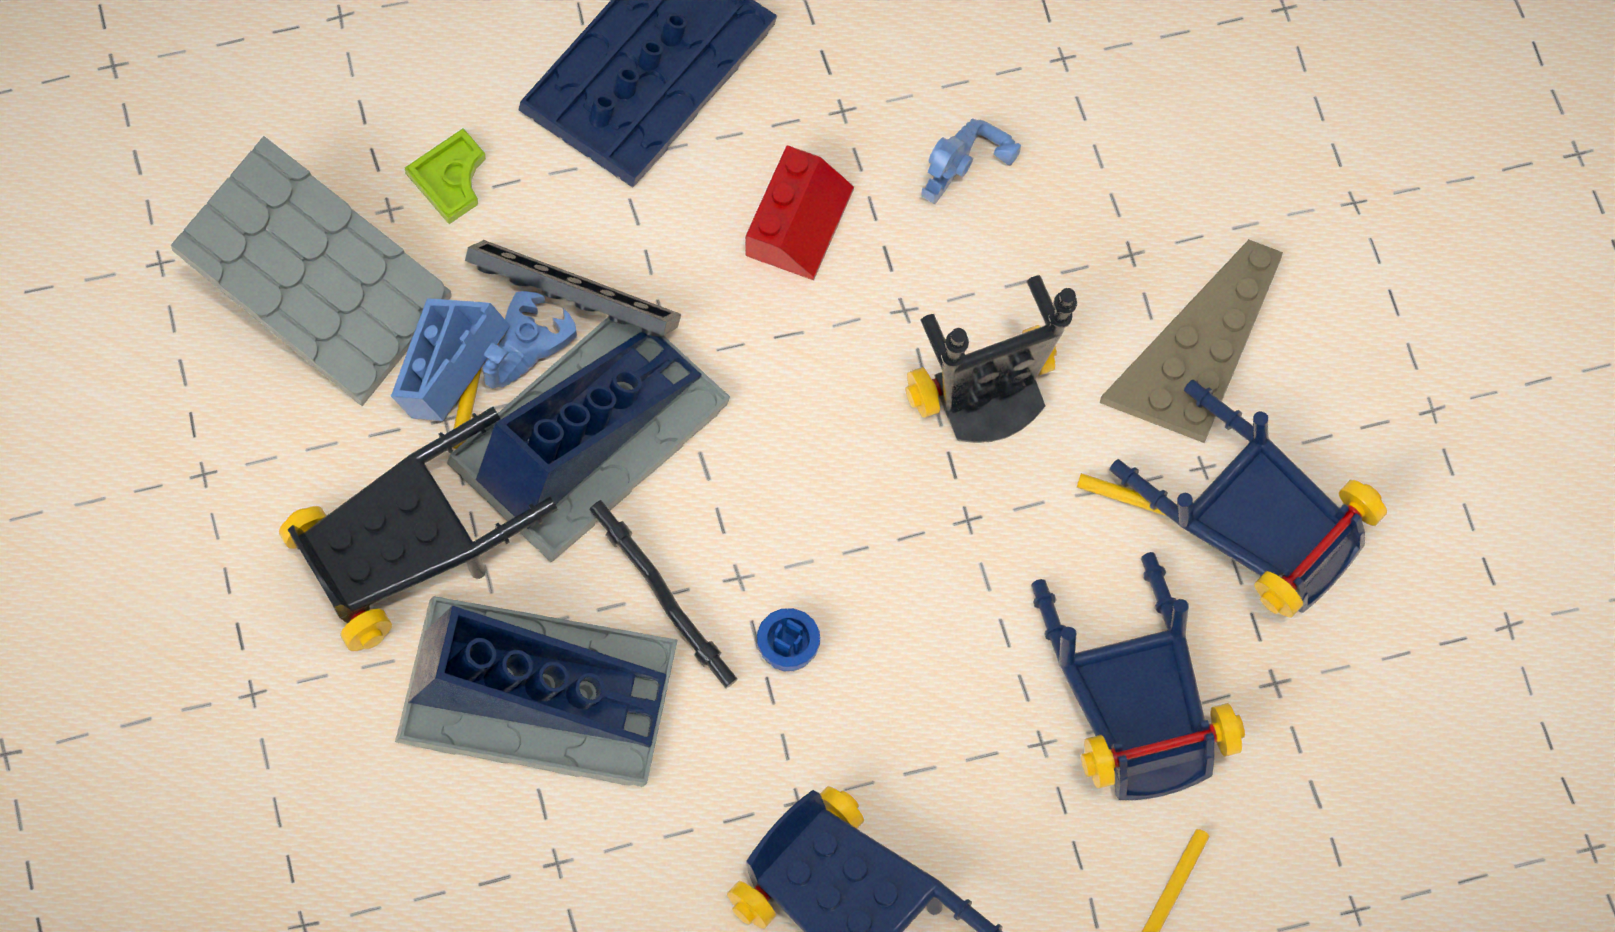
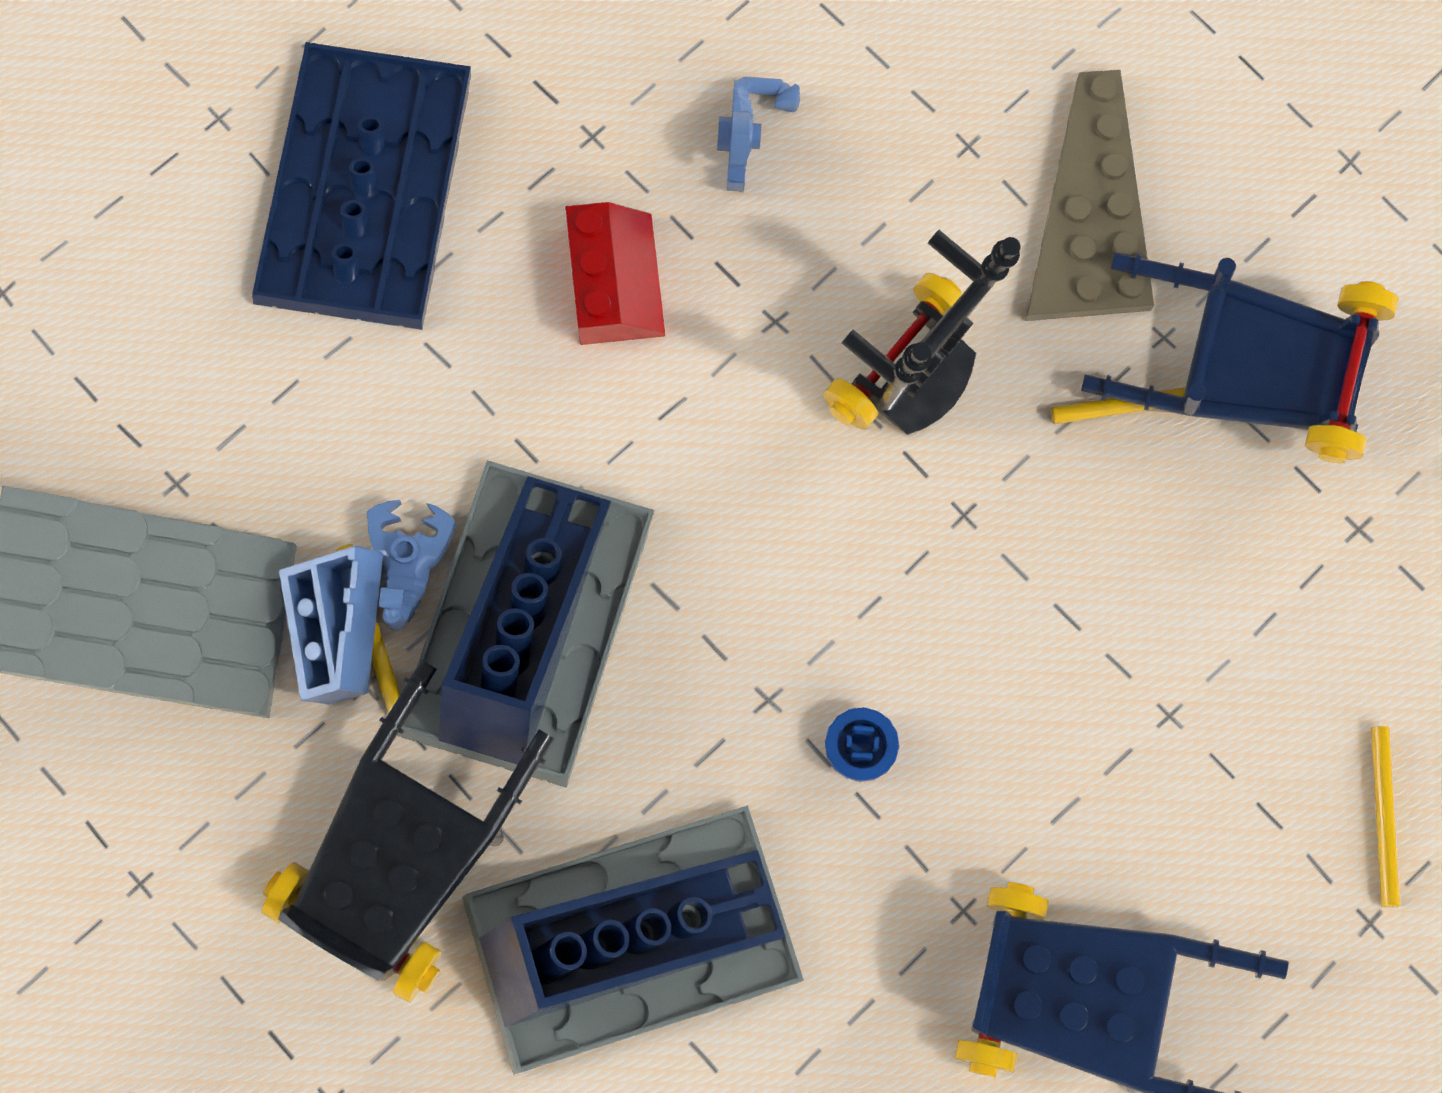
camera: 30 degrees left, 10 degrees up
(447, 174) = (217, 414): lime tile -> none
(563, 284) = (425, 476): plate -> none
(706, 652) = (784, 801): black bar -> none
(1142, 701) = (1253, 620): dark blue piece -> none

